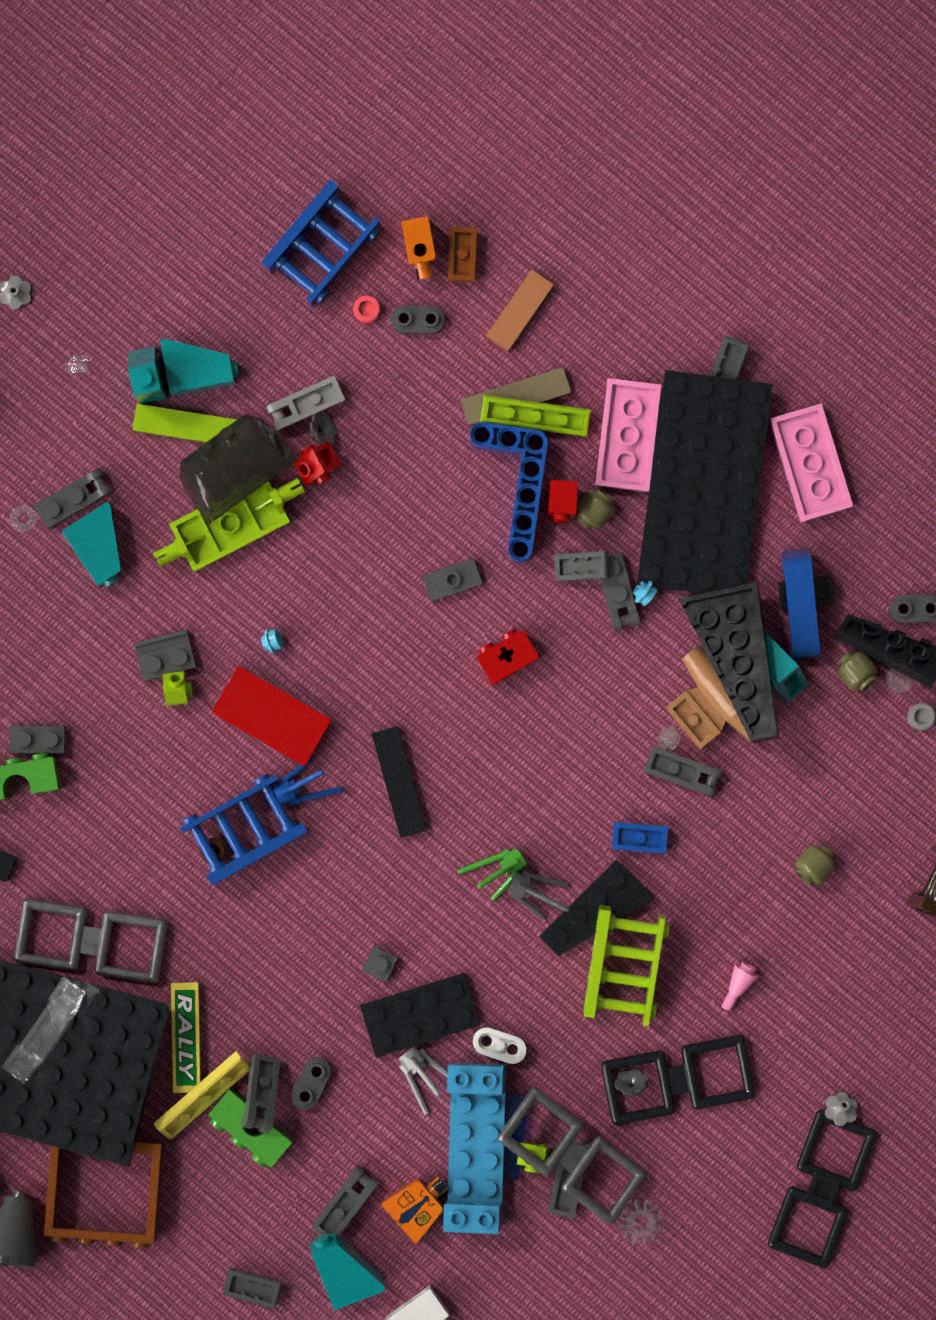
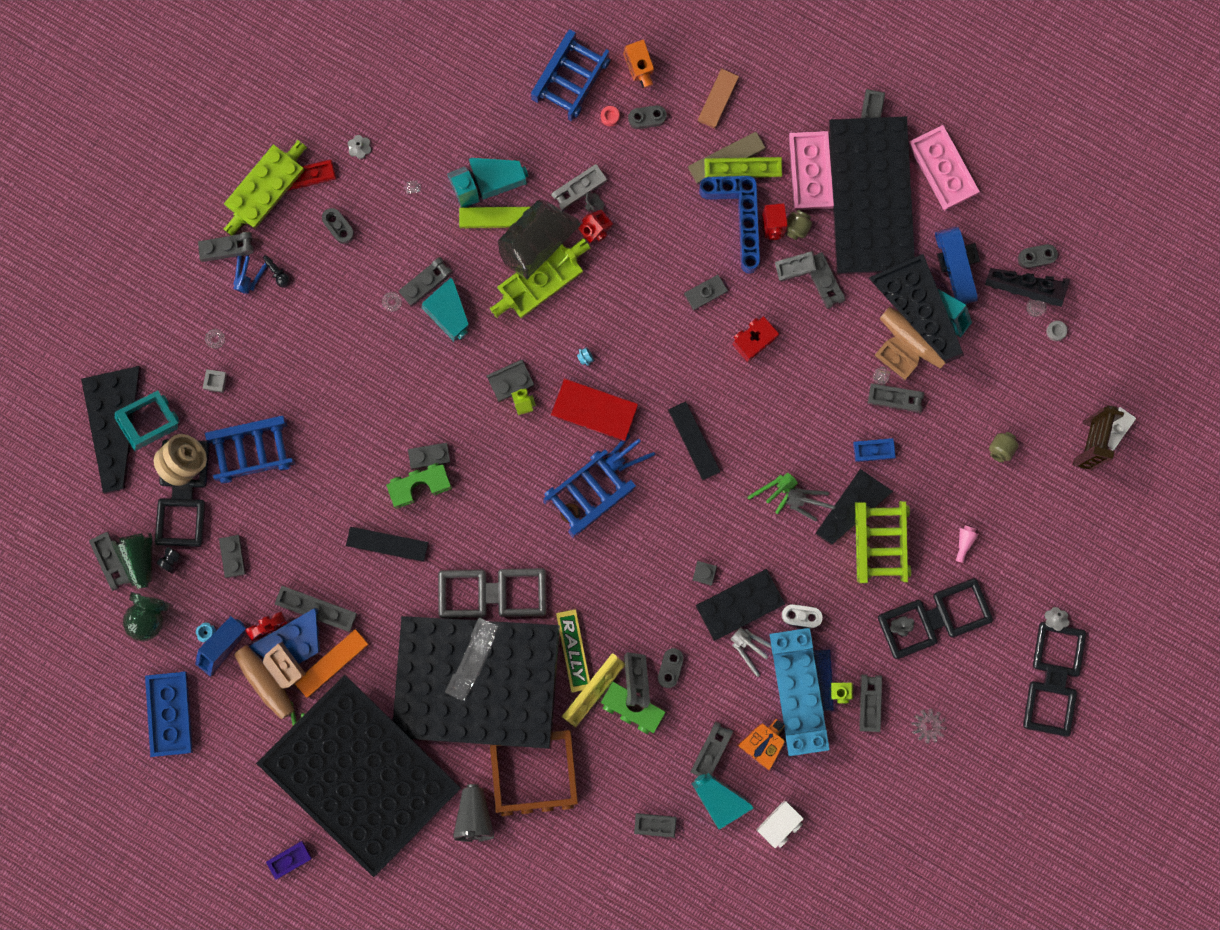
camera: 10 degrees left, 5 degrees down
(462, 254) = (670, 66): dark orange plate -> none
(572, 1155) = (871, 685): flat silver bar -> none
(644, 593) = (844, 277): medium azure plate -> none
(858, 671) = (1006, 305): olive head -> none

